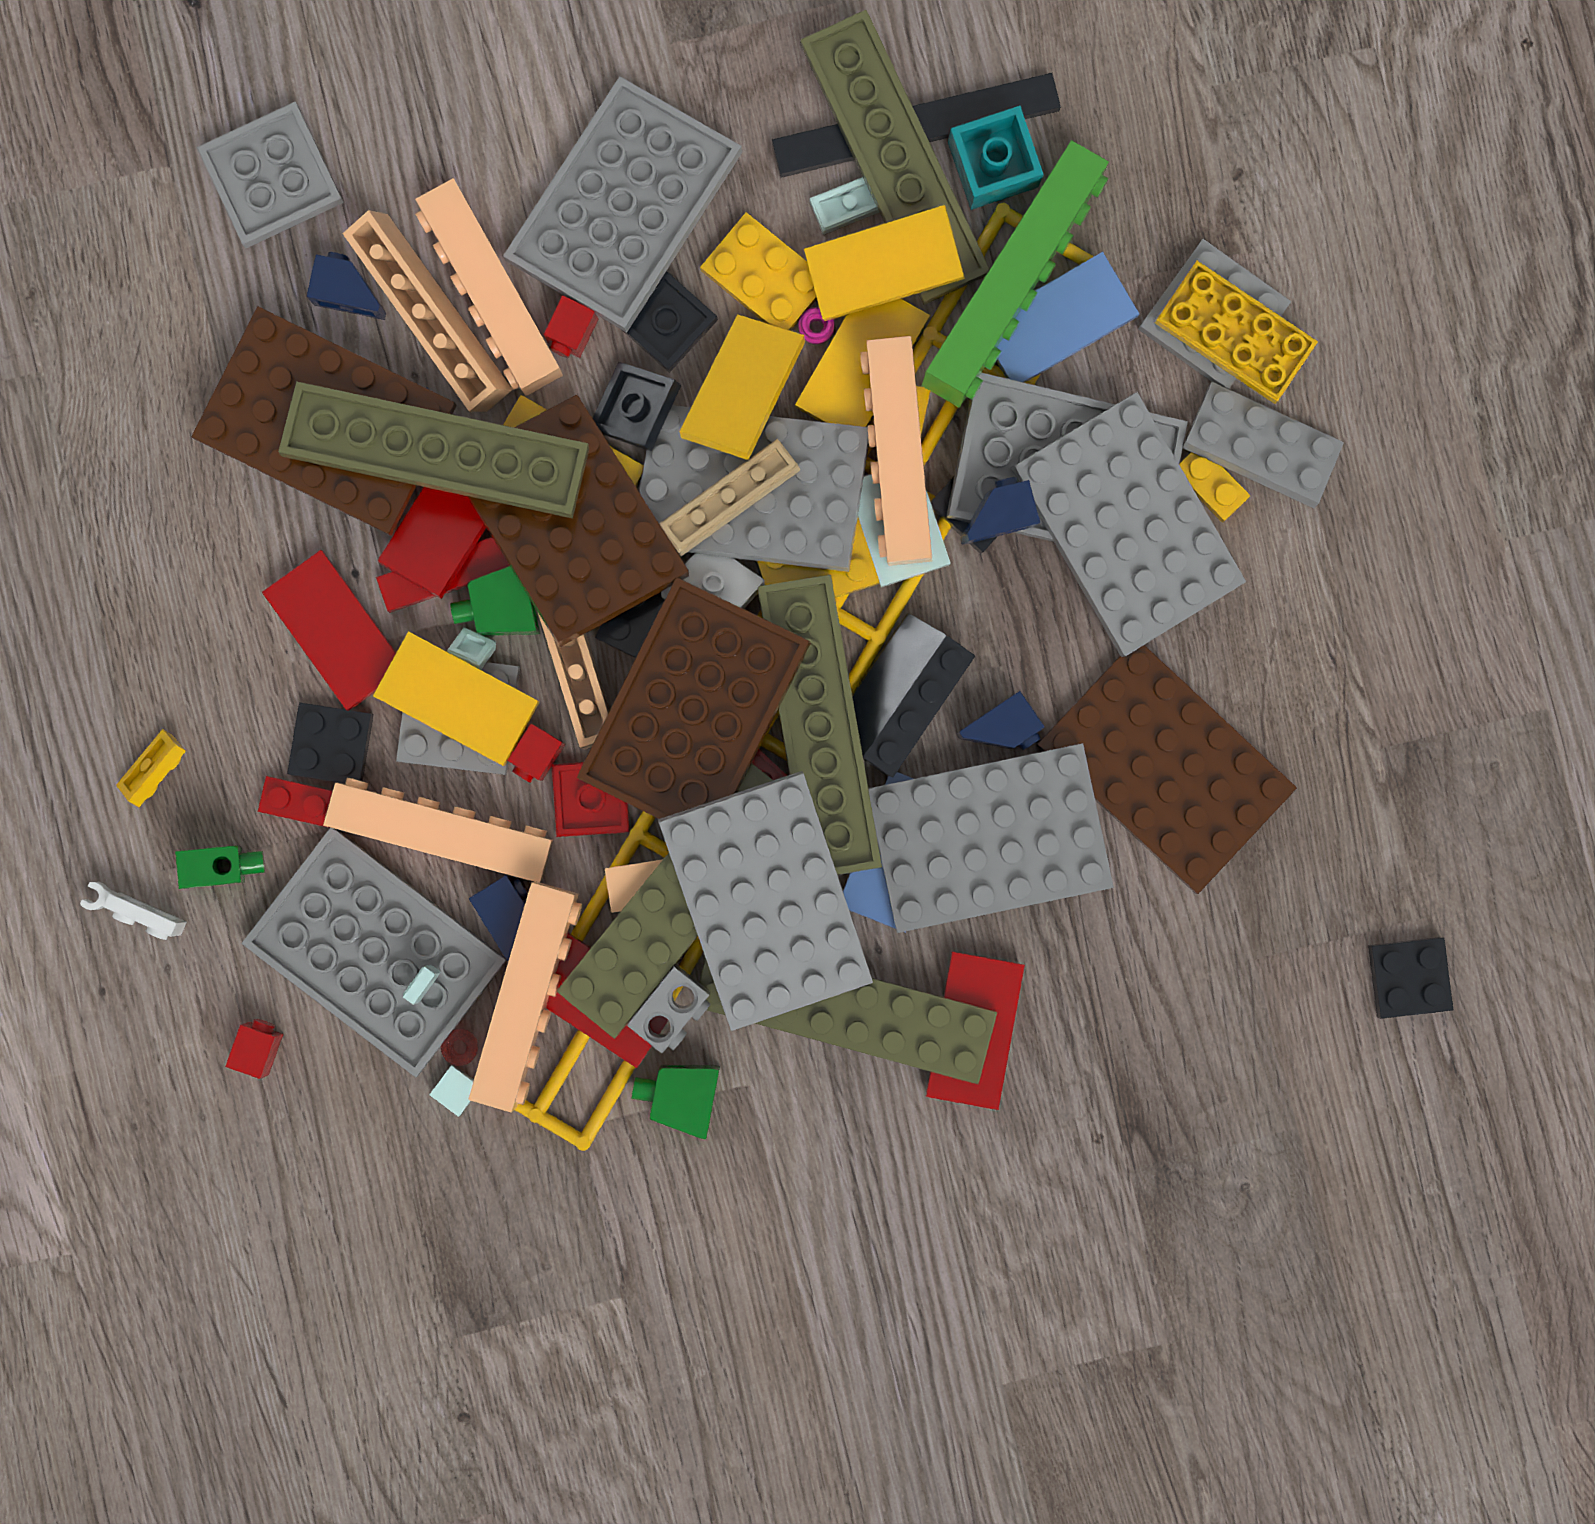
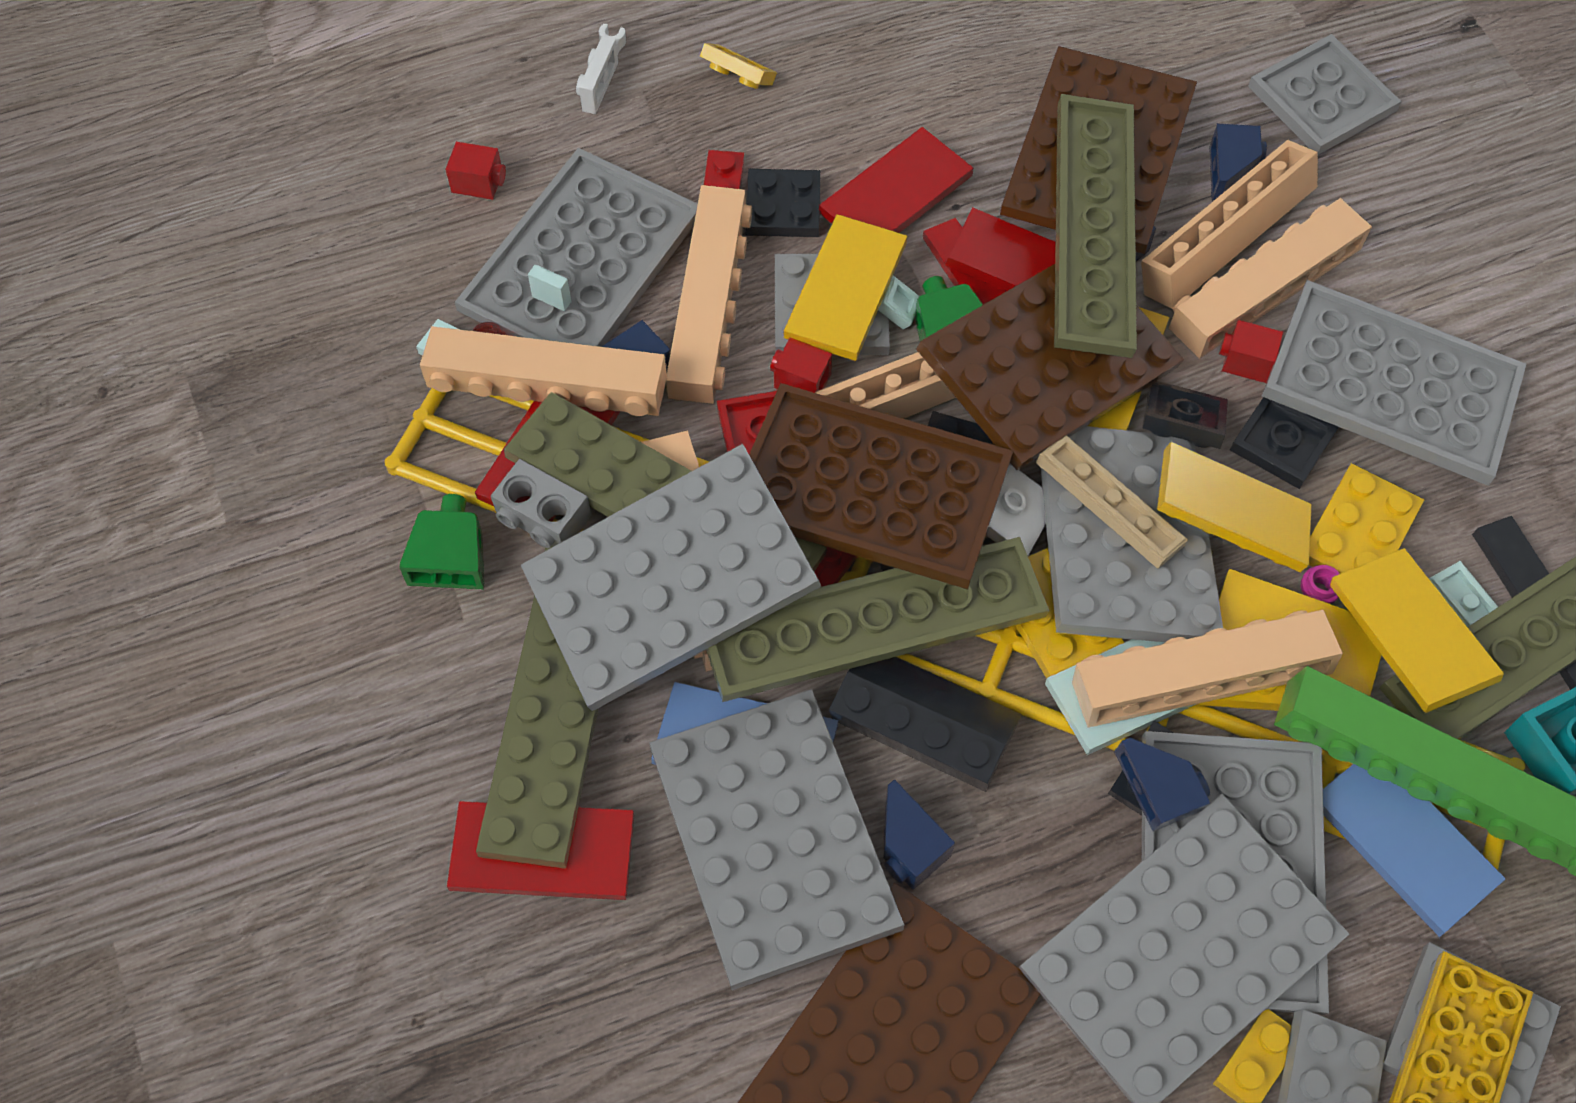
camera: 85 degrees right, 25 degrees down
(200, 866) = (651, 121): green torso -> none

